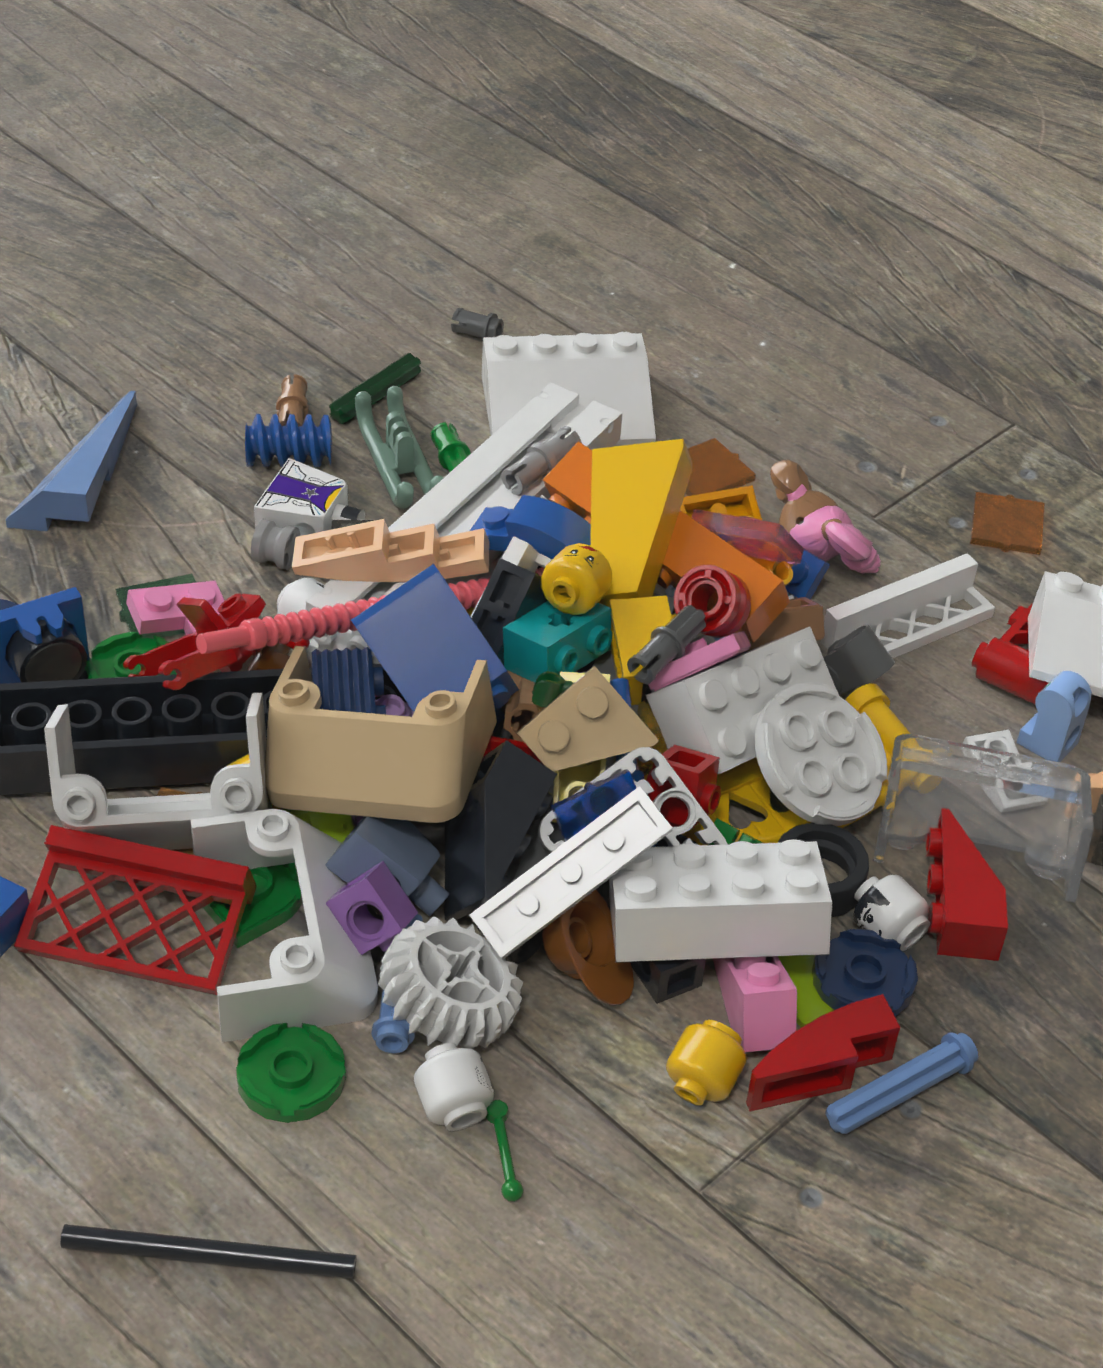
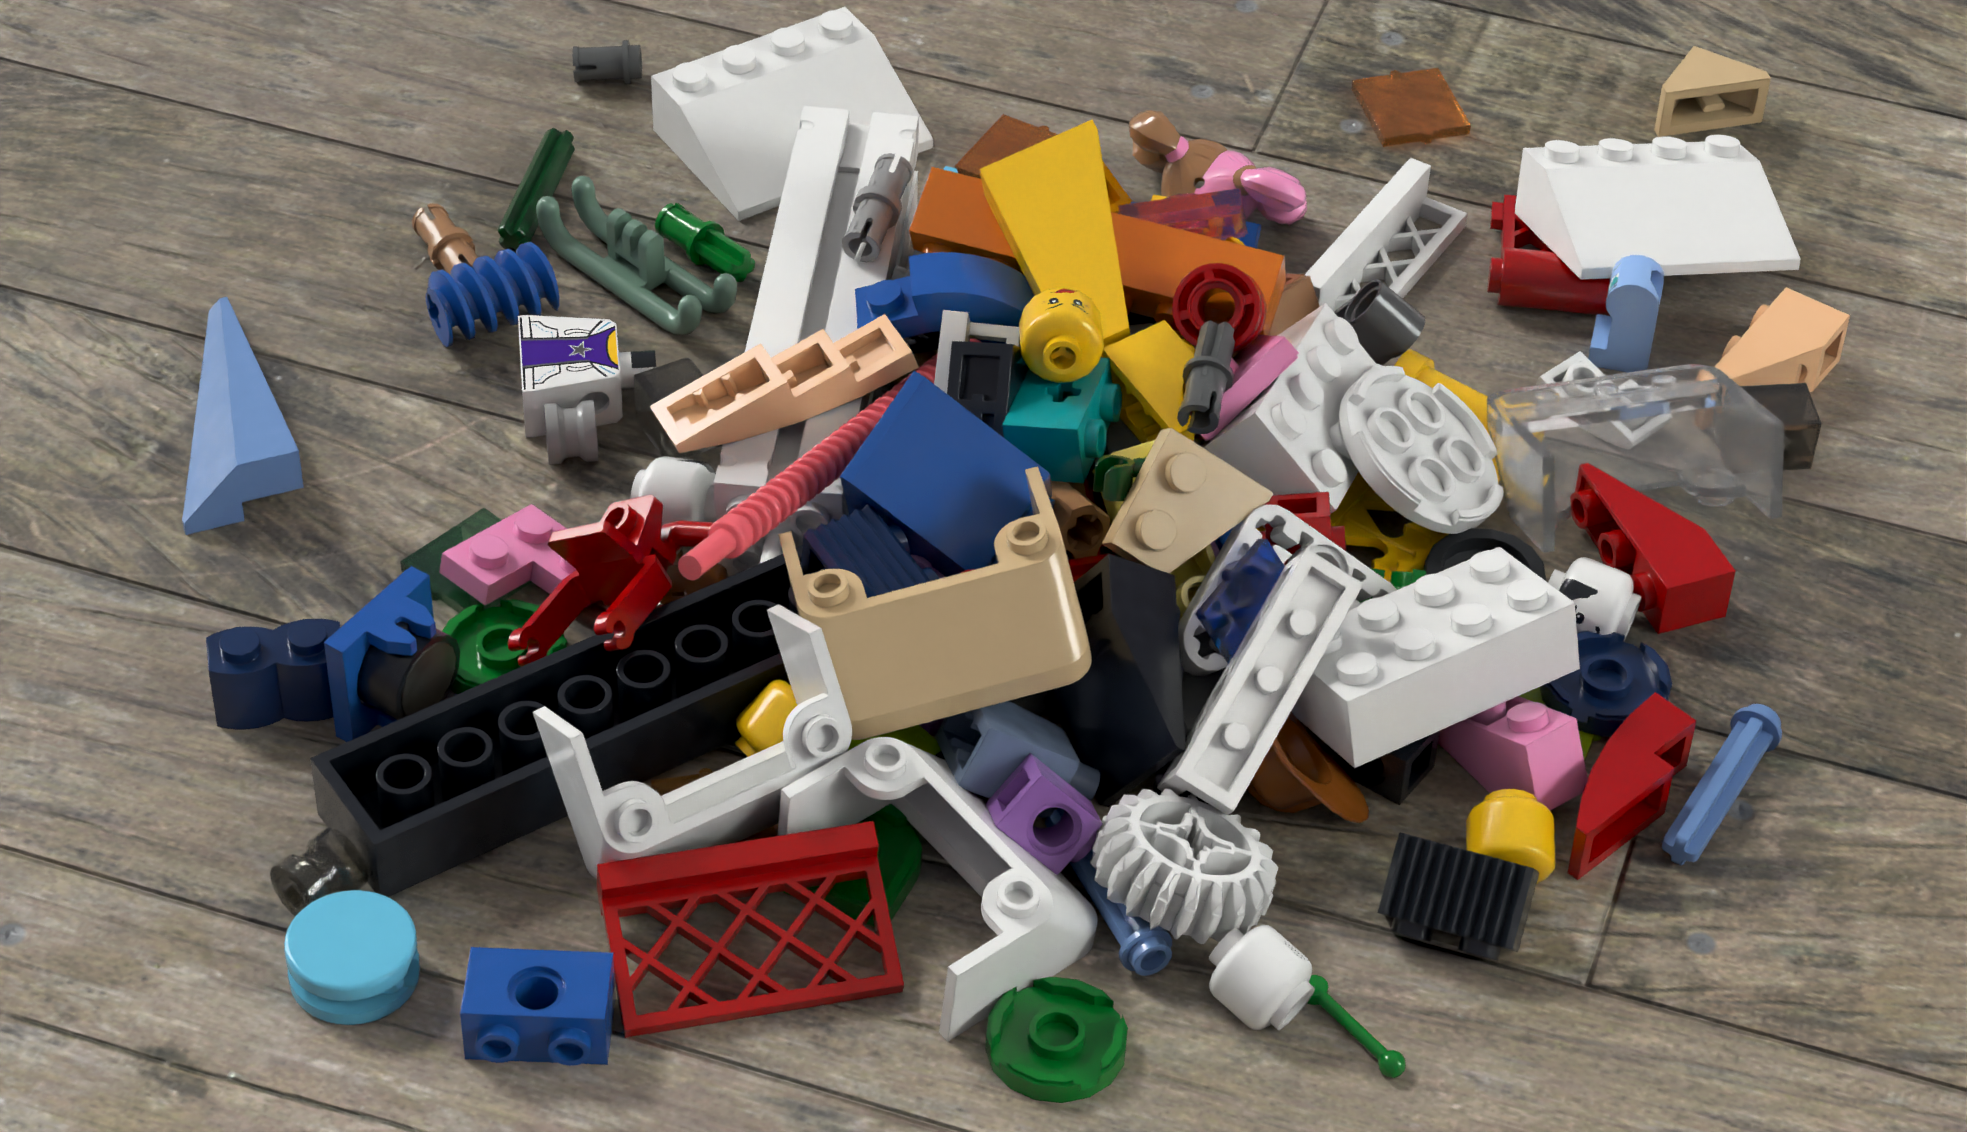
camera: 25 degrees left, 0 degrees up
(636, 1085) = (1457, 894): none -> black brick

